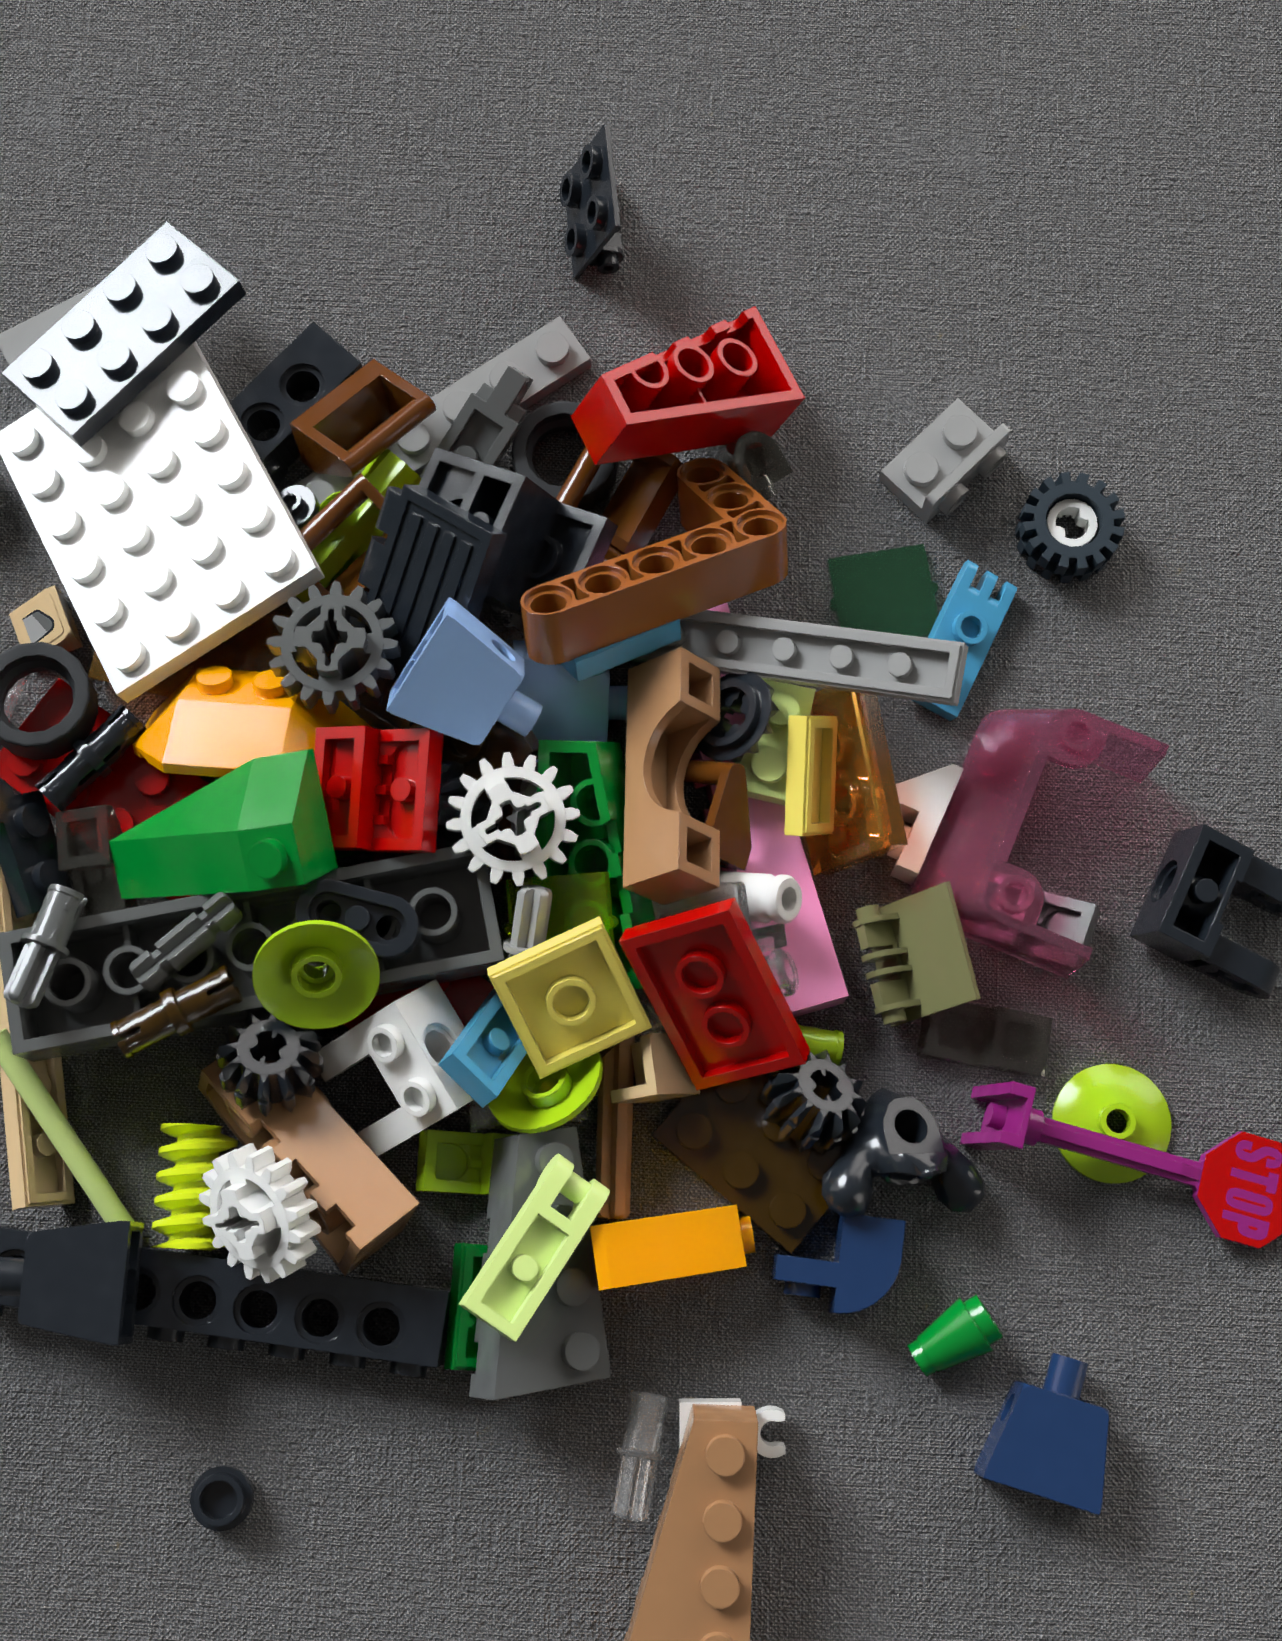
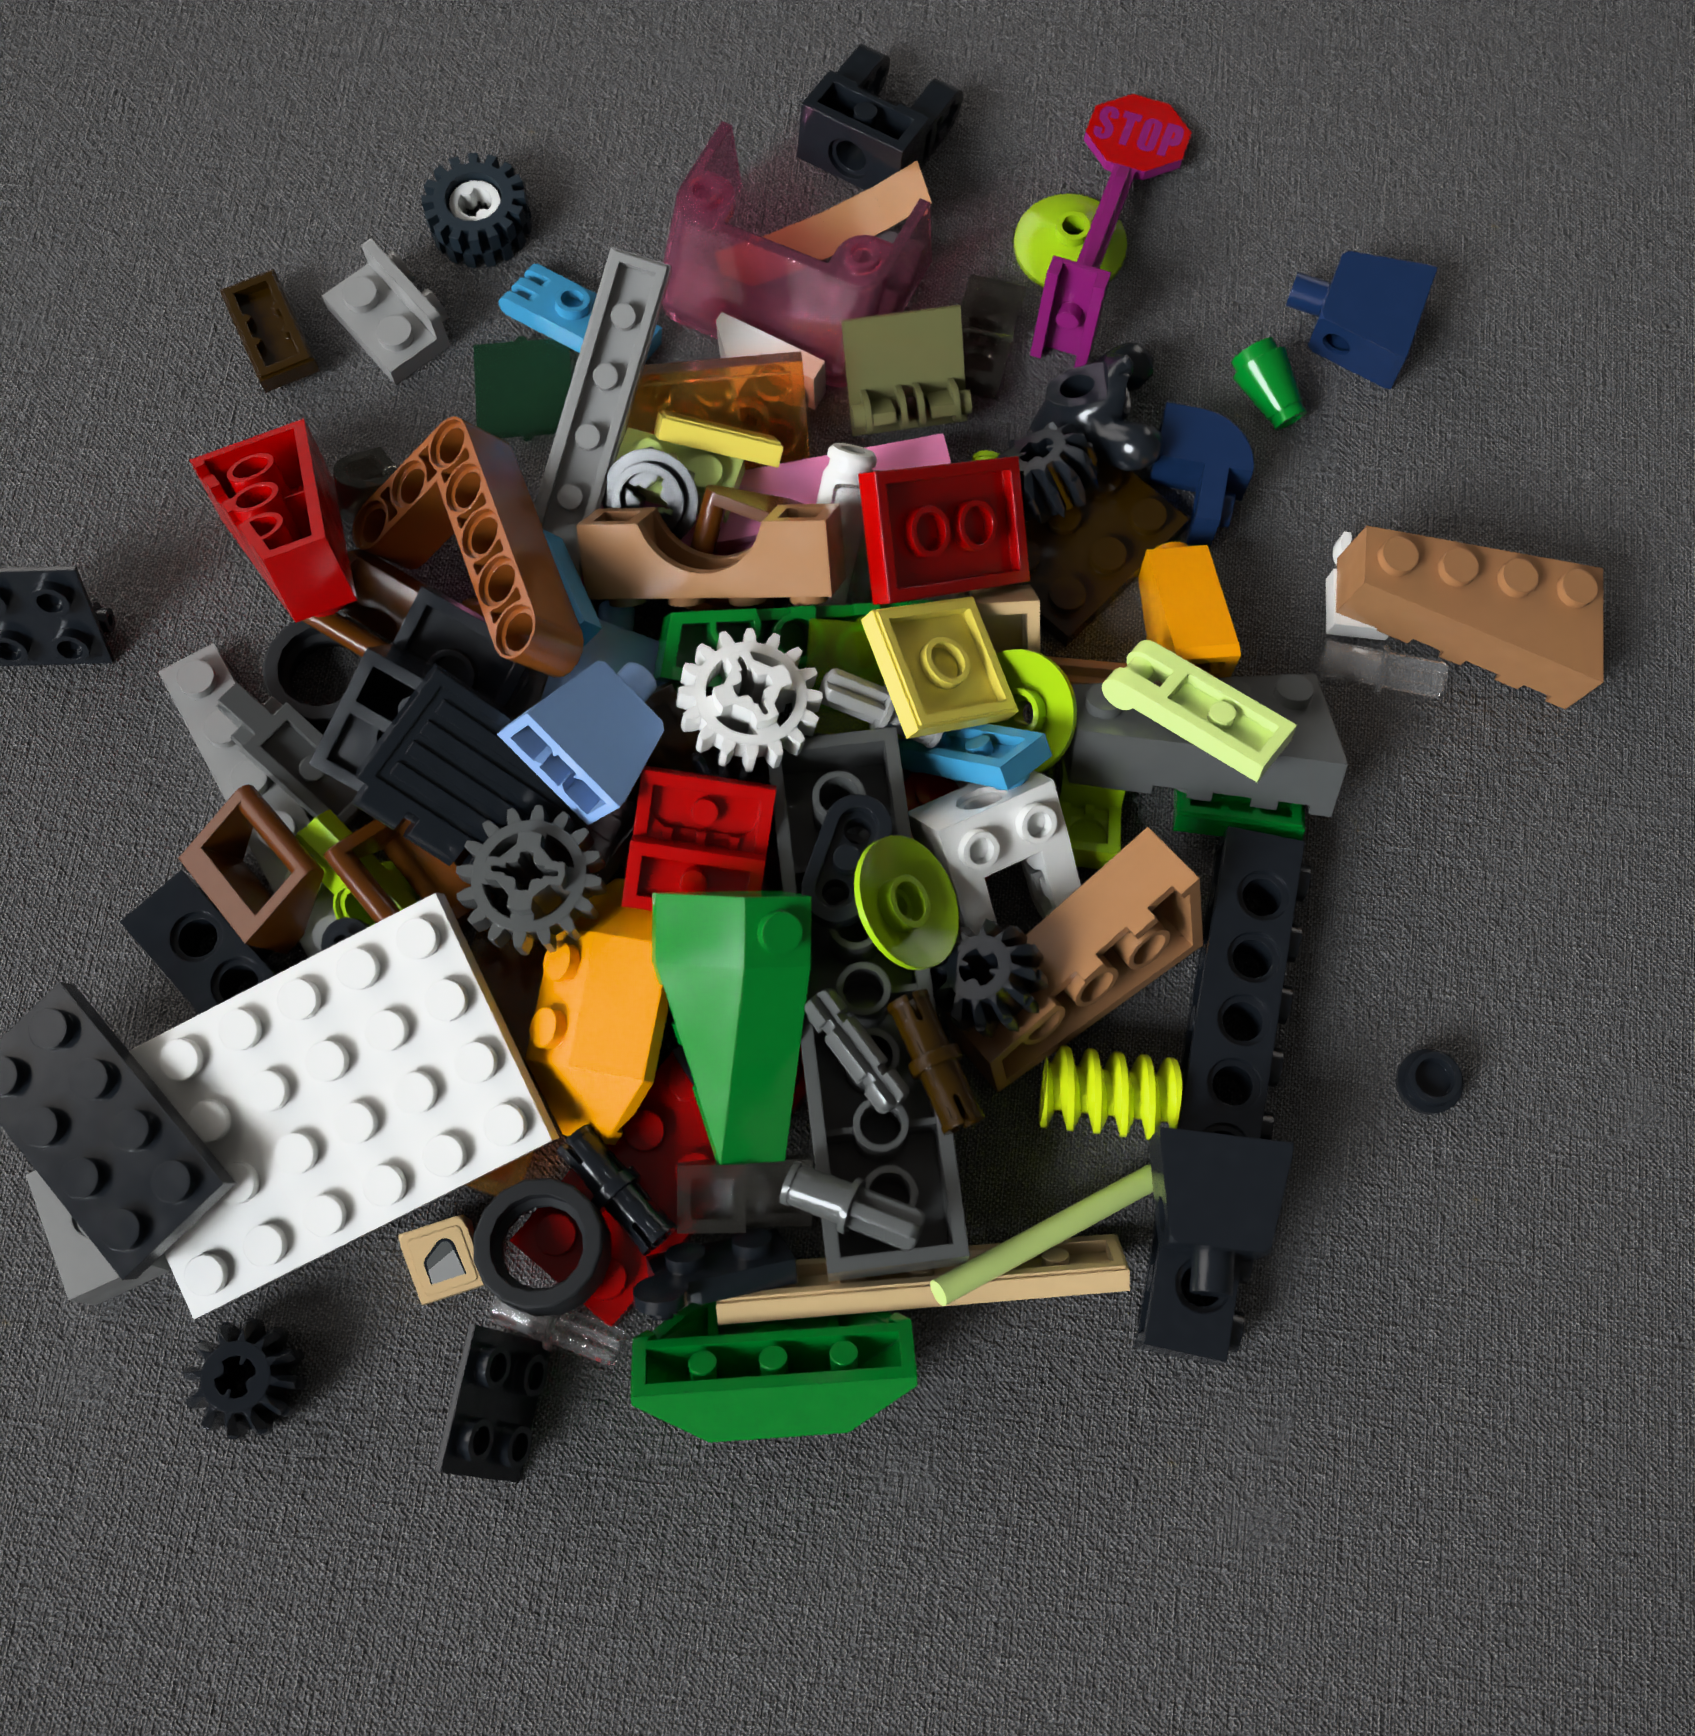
camera: 85 degrees left, 5 degrees down
(259, 1212) = (1151, 994): white gear -> none
(915, 357) = (269, 330): none -> dark brown plate
(1084, 871) = (859, 215): none -> medium nougat sticker

